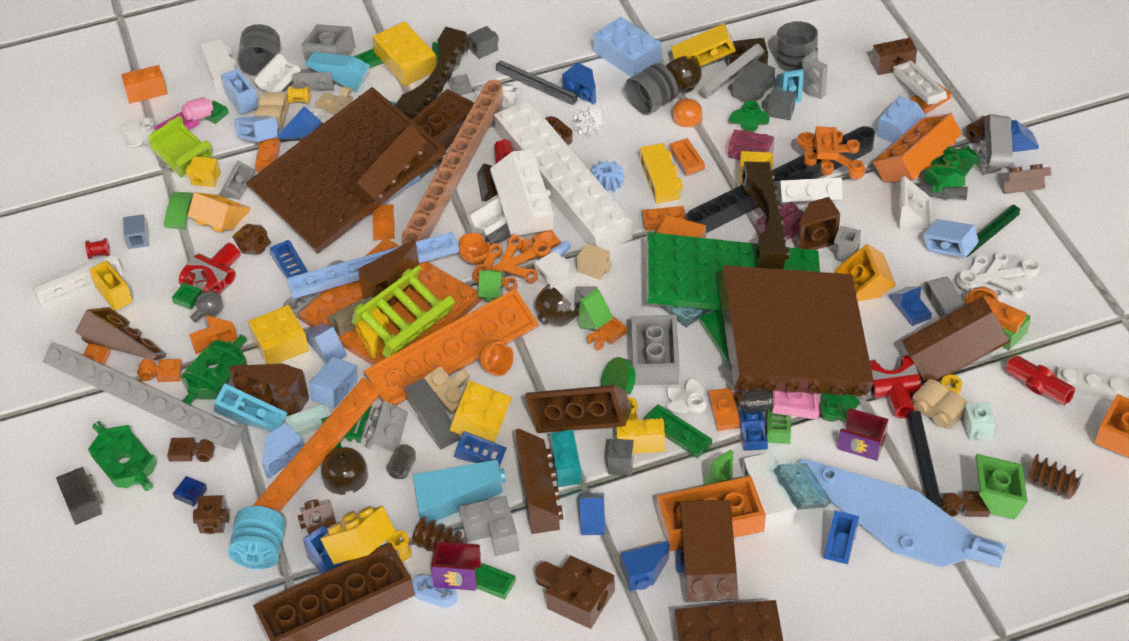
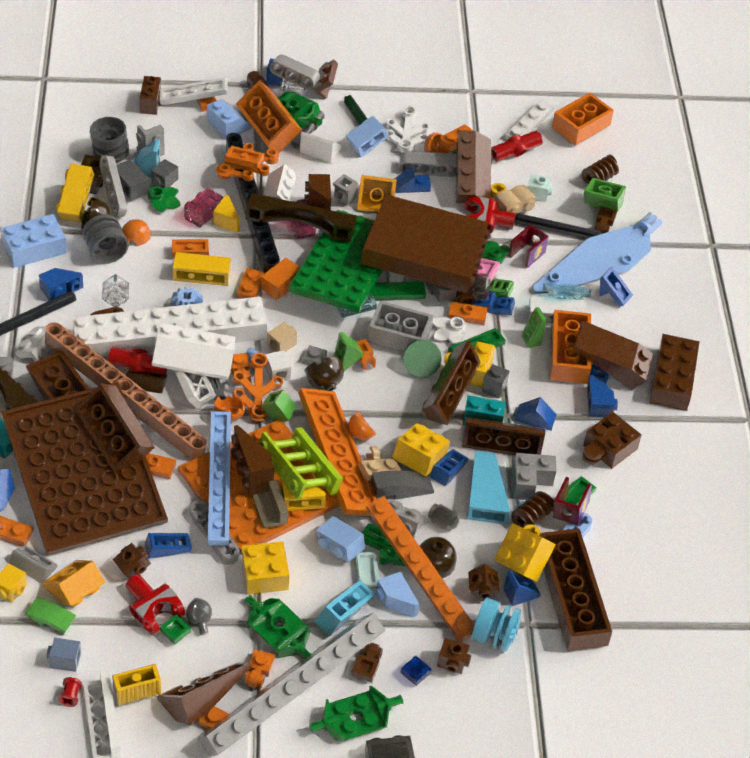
camera: 80 degrees left, 0 degrees up
(217, 330) = (235, 614): orange slope -> none
(274, 384) = (336, 577): reddish brown slope -> none
(325, 342) = (289, 533): medium blue slope -> none

